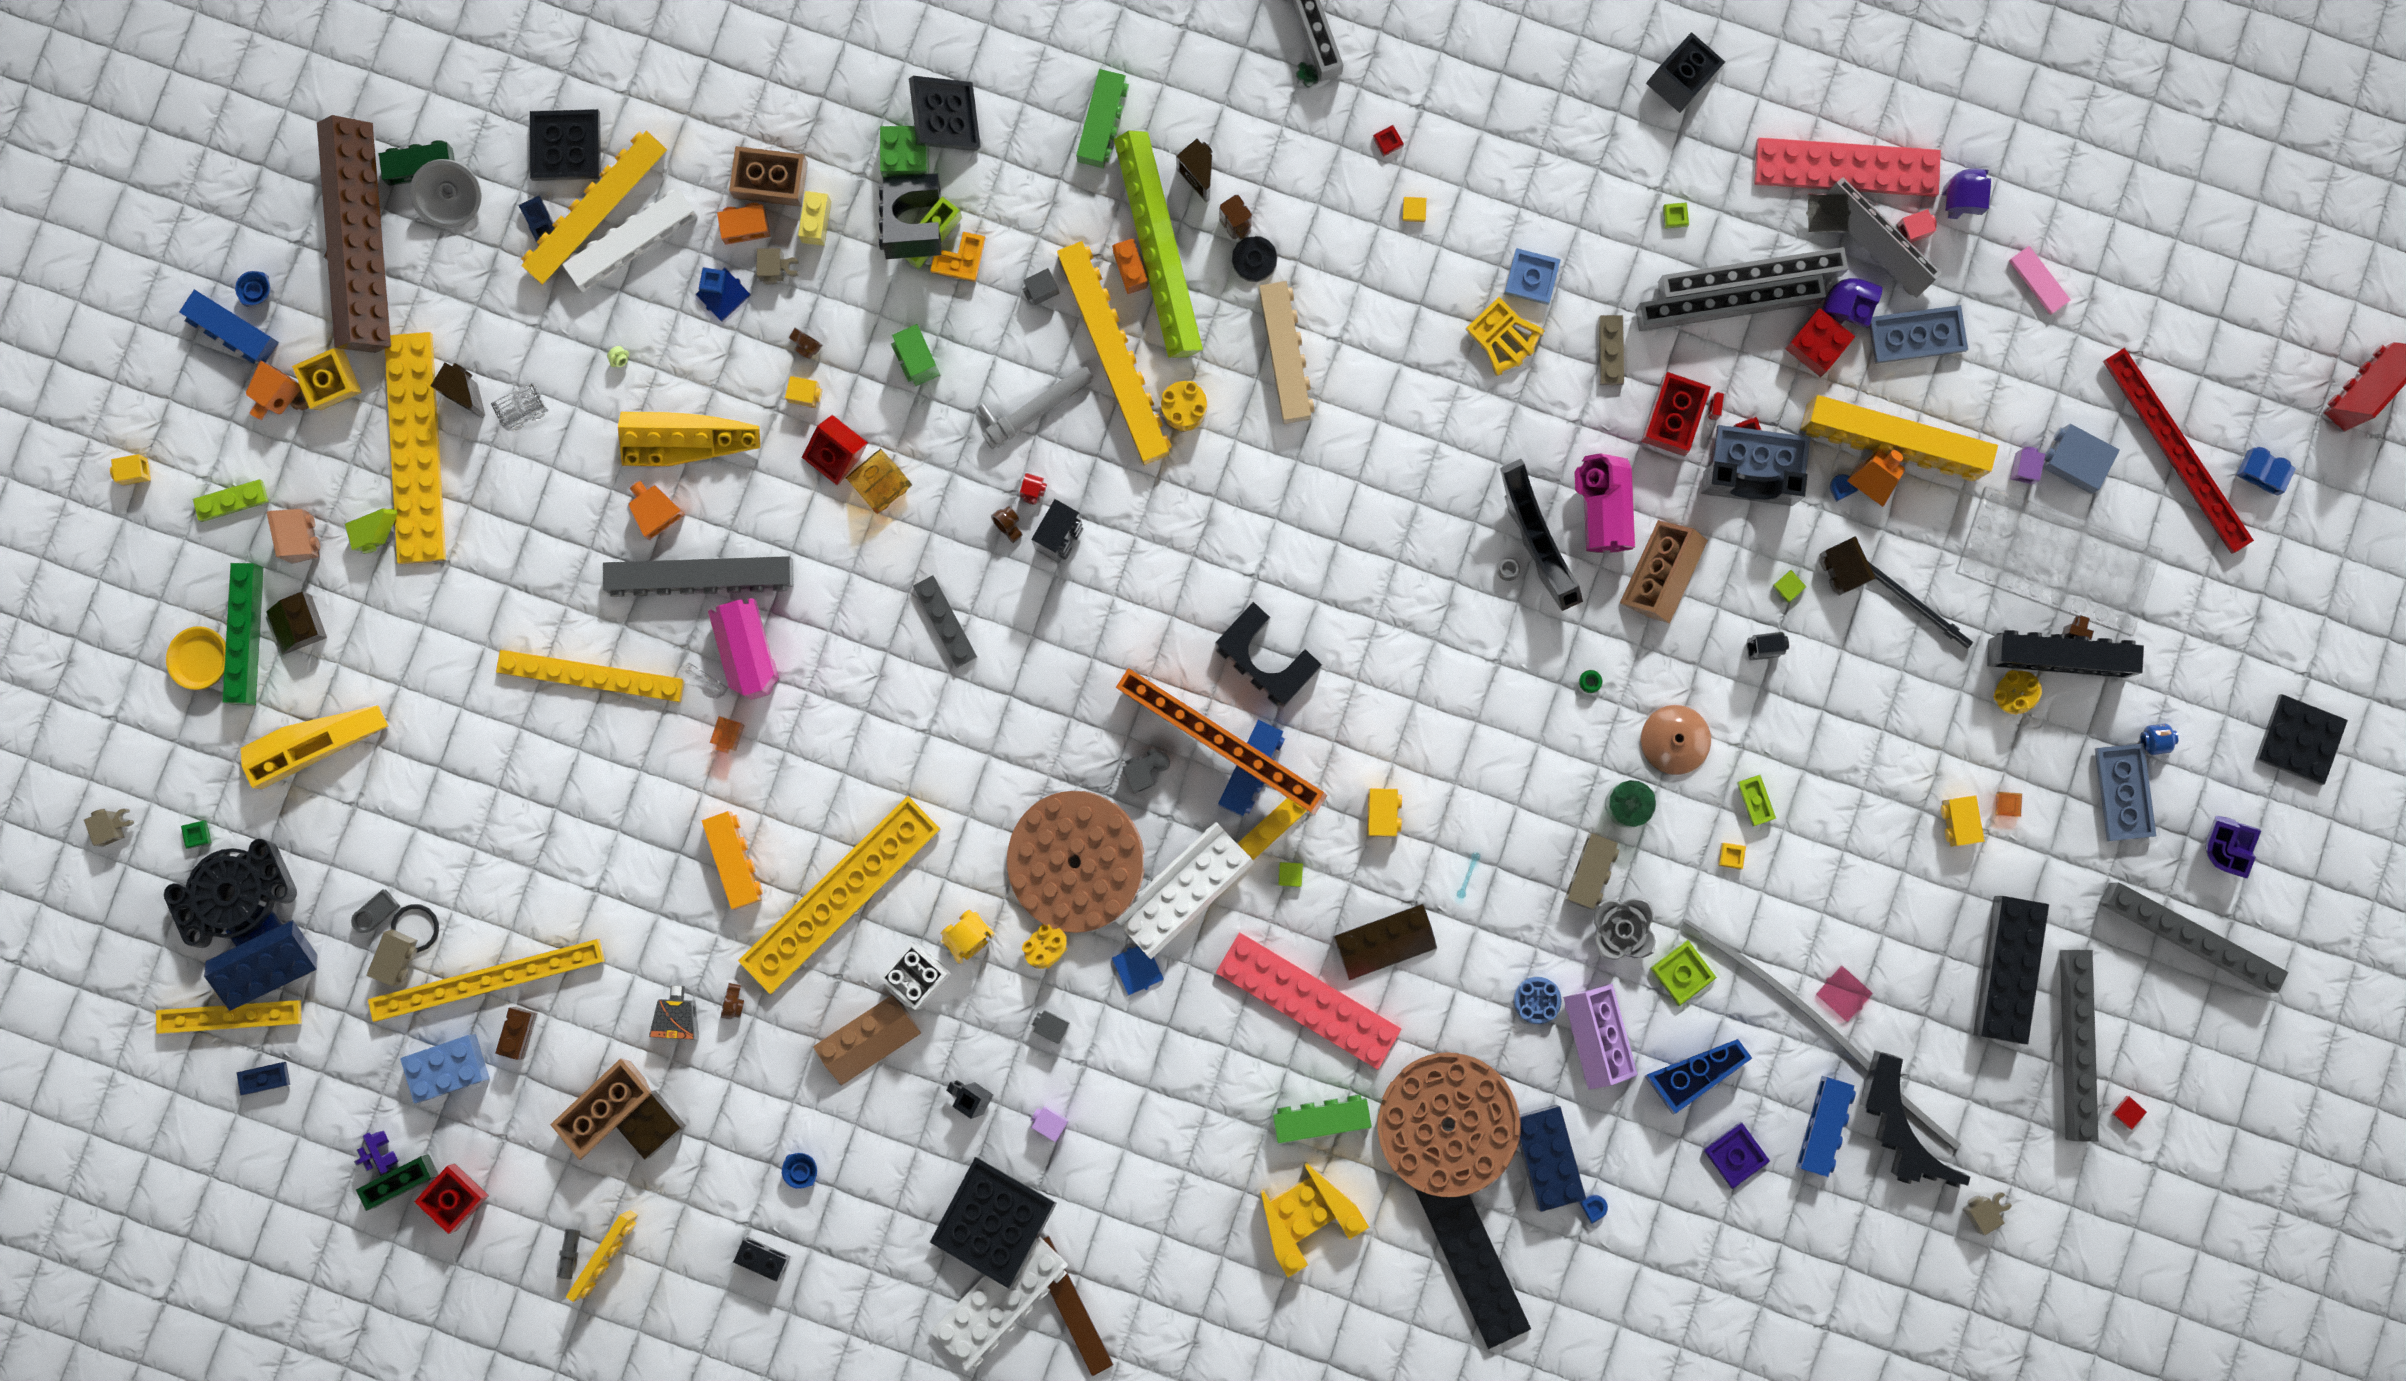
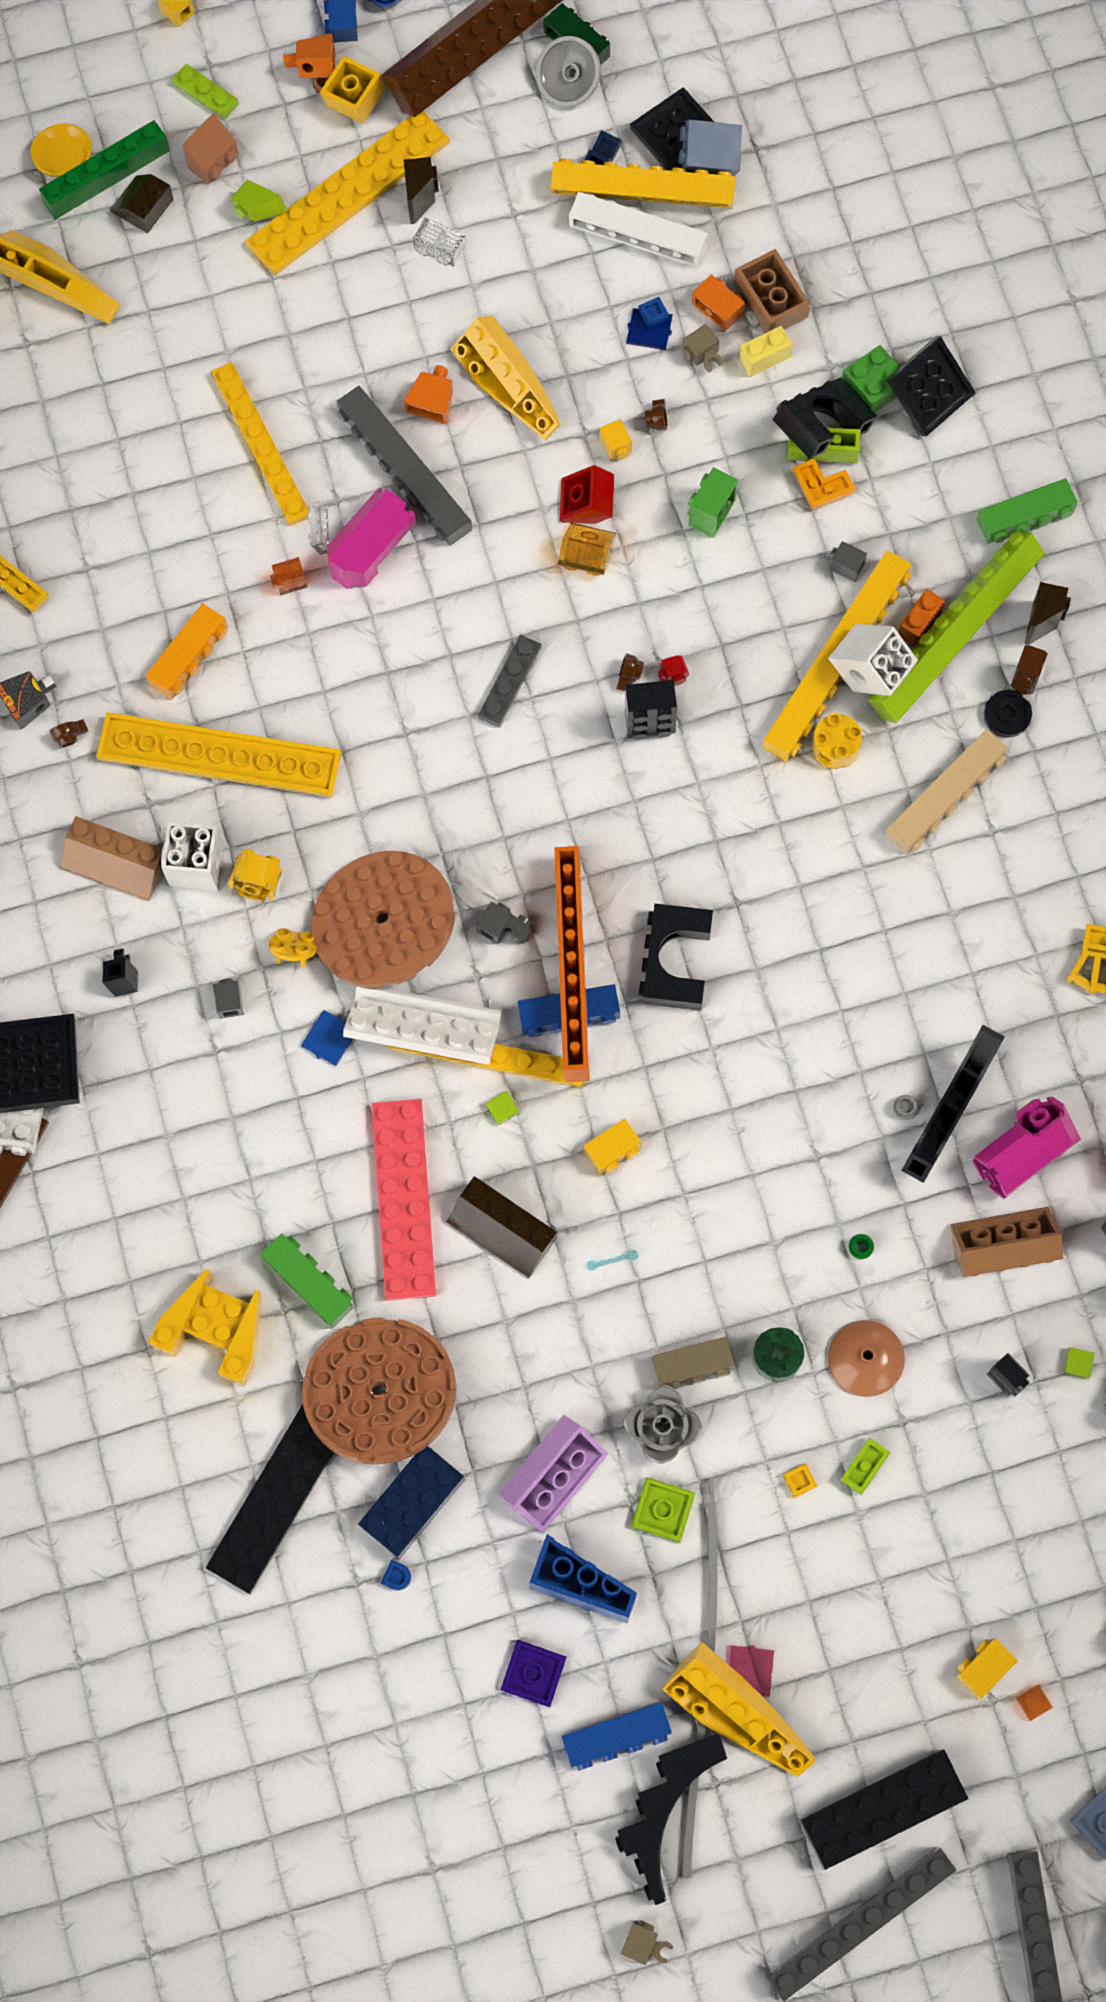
camera: 60 degrees right, 10 degrees down
(604, 130) = (710, 147): none -> sand blue brick
(618, 357) = (536, 285): yellowish green plate -> none
(1008, 427) = (709, 616): light grey cylinder -> none
(1048, 1123) = (144, 1054): lavender brick -> none
(1144, 330) = (873, 659): none -> white brick
(1537, 1000) = (545, 1397): medium blue tile -> none
(1867, 1025) = (735, 1709): none -> yellow wedge

